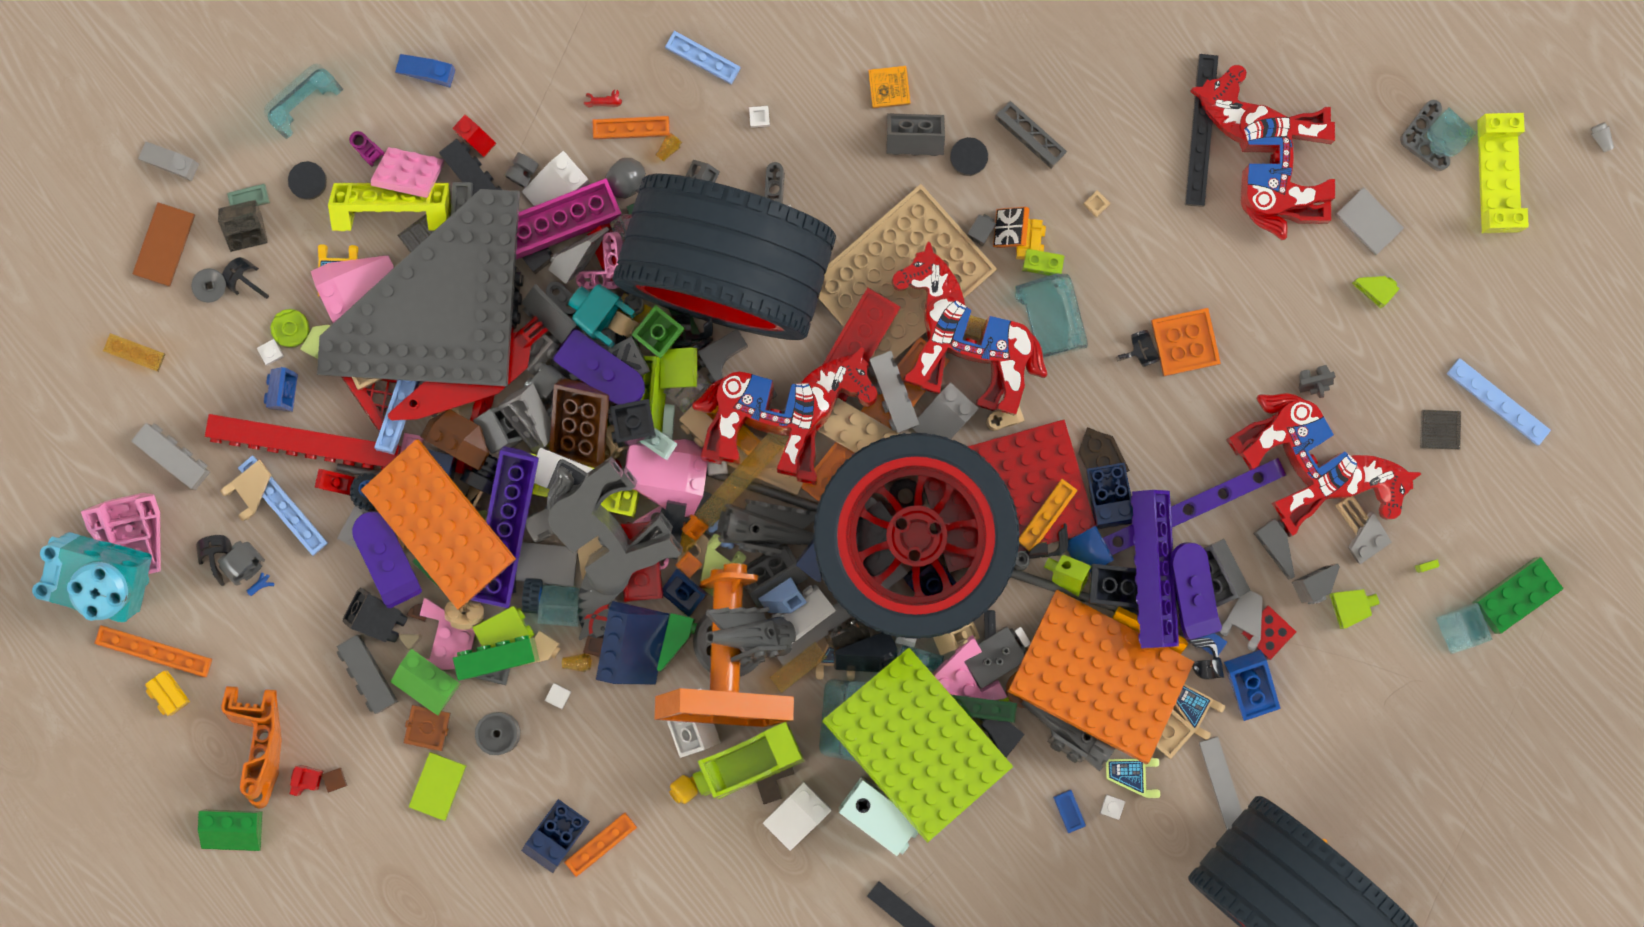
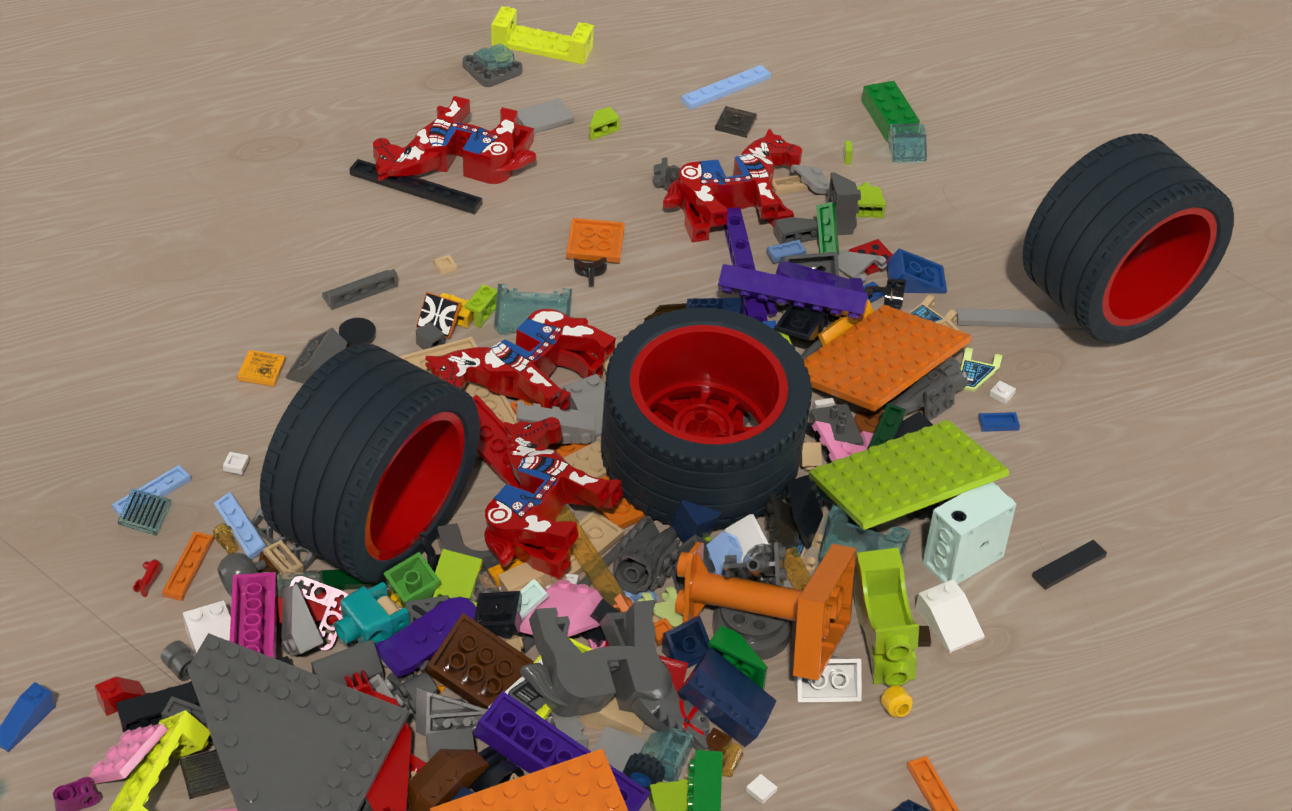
camera: 75 degrees left, 40 degrees down
(673, 63) = (144, 511): none -> clear light blue tile
(692, 149) = (241, 525): none -> light blue tile
(1241, 541) = (785, 249): none -> medium blue plate
(1276, 577) = (827, 228): none -> green plate

